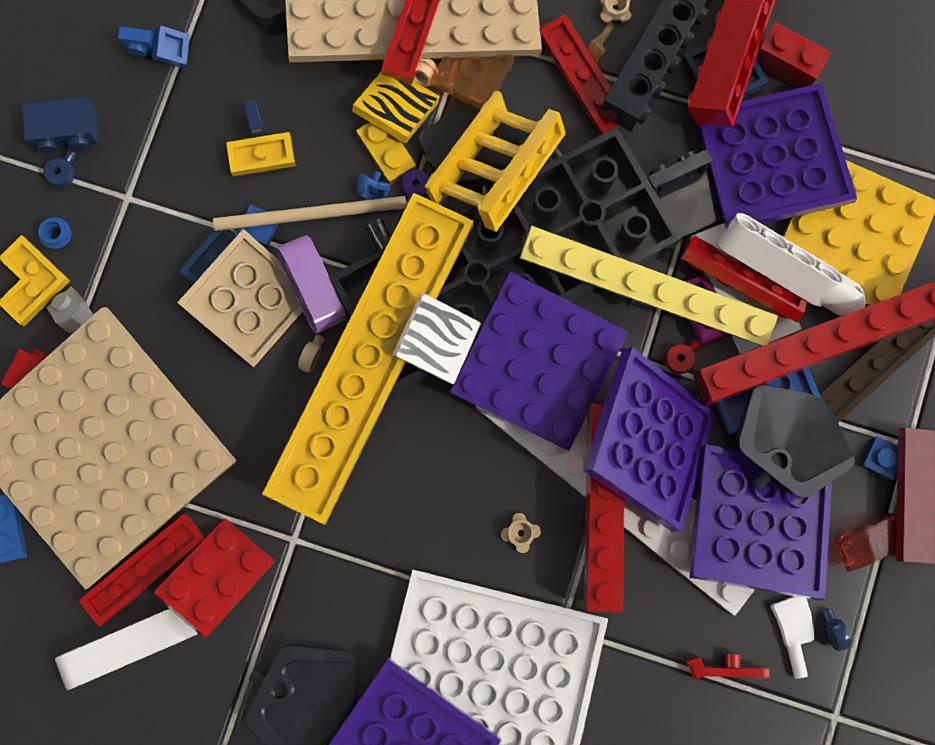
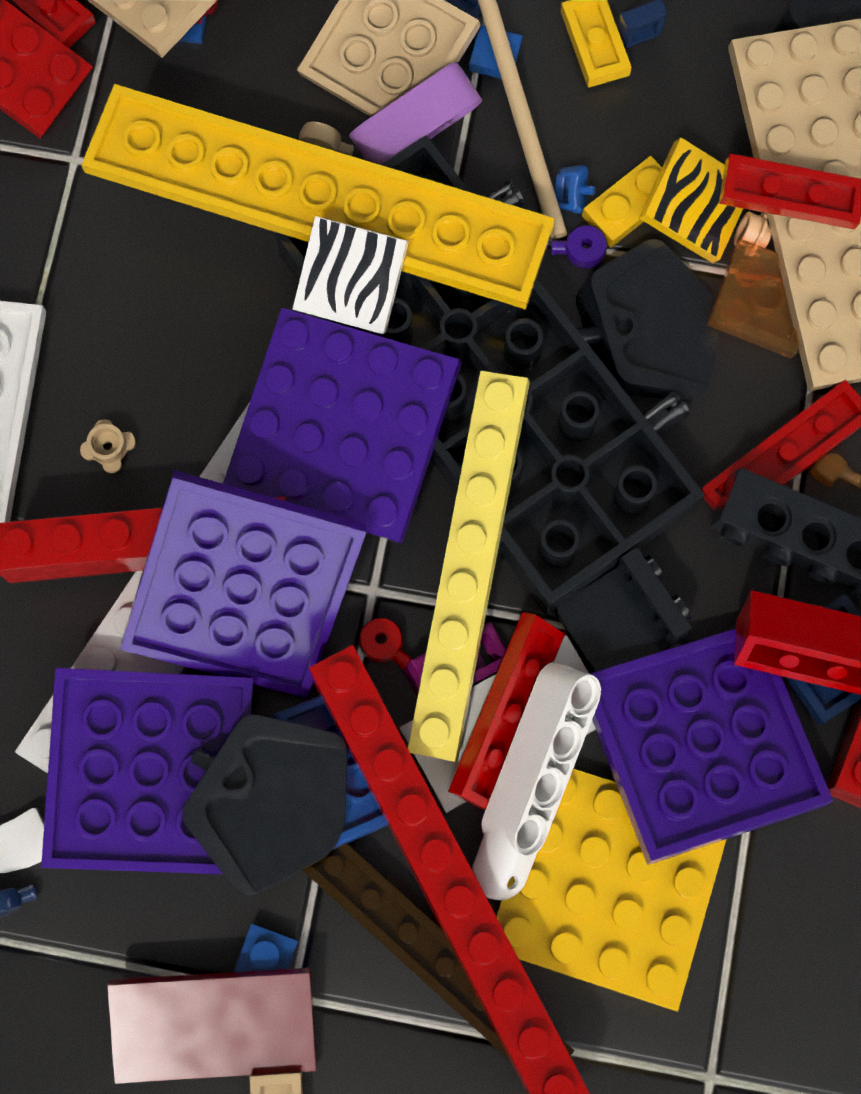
camera: 85 degrees right, 5 degrees down
(511, 181) = (610, 358): yellow fence -> none
(869, 543) = (134, 937): clear red slope -> none

